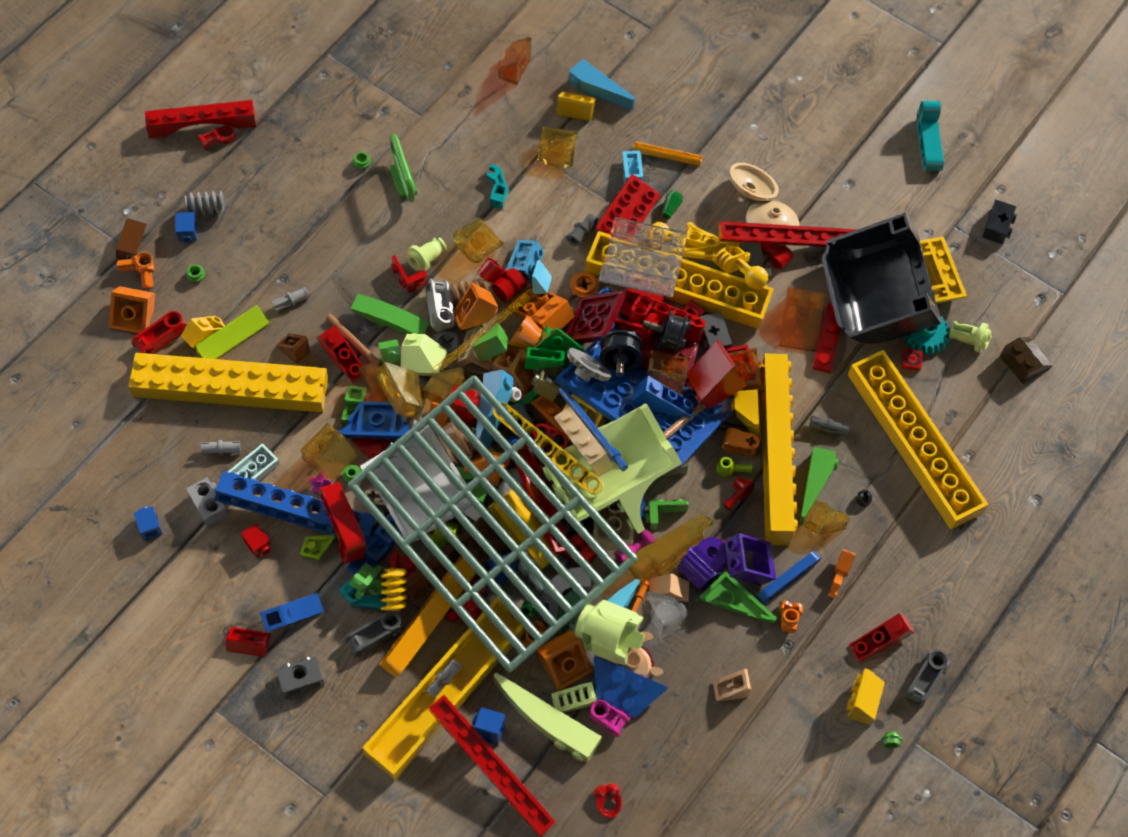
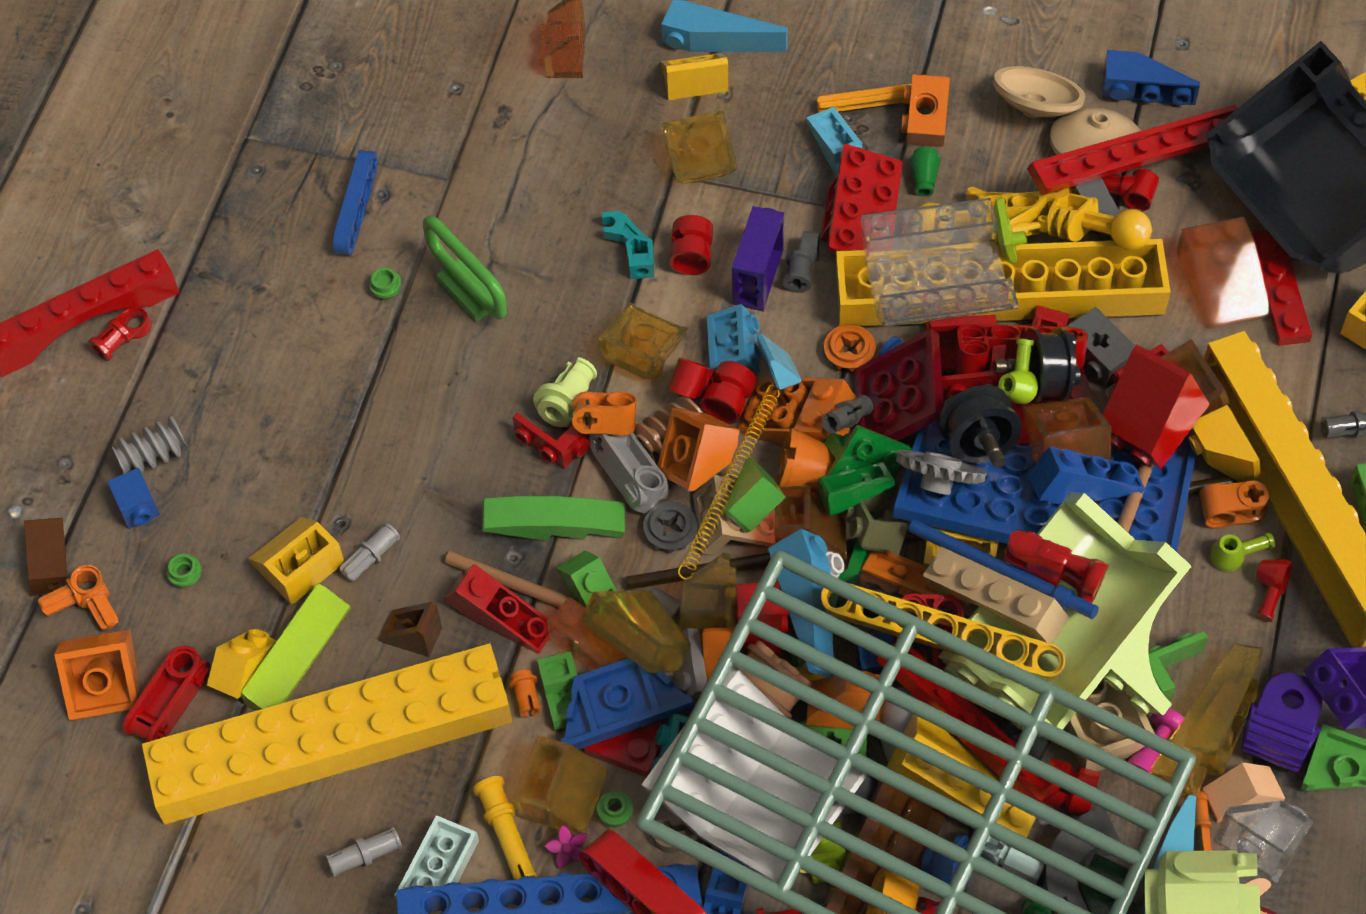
camera: 15 degrees left, 5 degrees down
(253, 289) = (298, 559): none -> yellow slope
(294, 457) = (500, 815): none -> yellow pin
(335, 399) = (524, 685): none -> orange pin
(365, 111) = (355, 202): none -> blue beam
(421, 354) = (642, 559): yellowish green slope -> none
(438, 272) = (608, 413): none -> orange piece
(527, 199) = (691, 245): none -> red wheel
(557, 219) = (758, 258): none -> dark purple window
(568, 318) = (840, 414): none -> dark grey pin
(618, 437) = (1055, 563): none -> red piece
(652, 337) = (1020, 384): none -> lime bar
(687, 181) = (931, 93): none -> orange brick
(689, 256) = (1005, 234): none -> lime piece
(813, 195) = (1140, 78): none -> blue slope

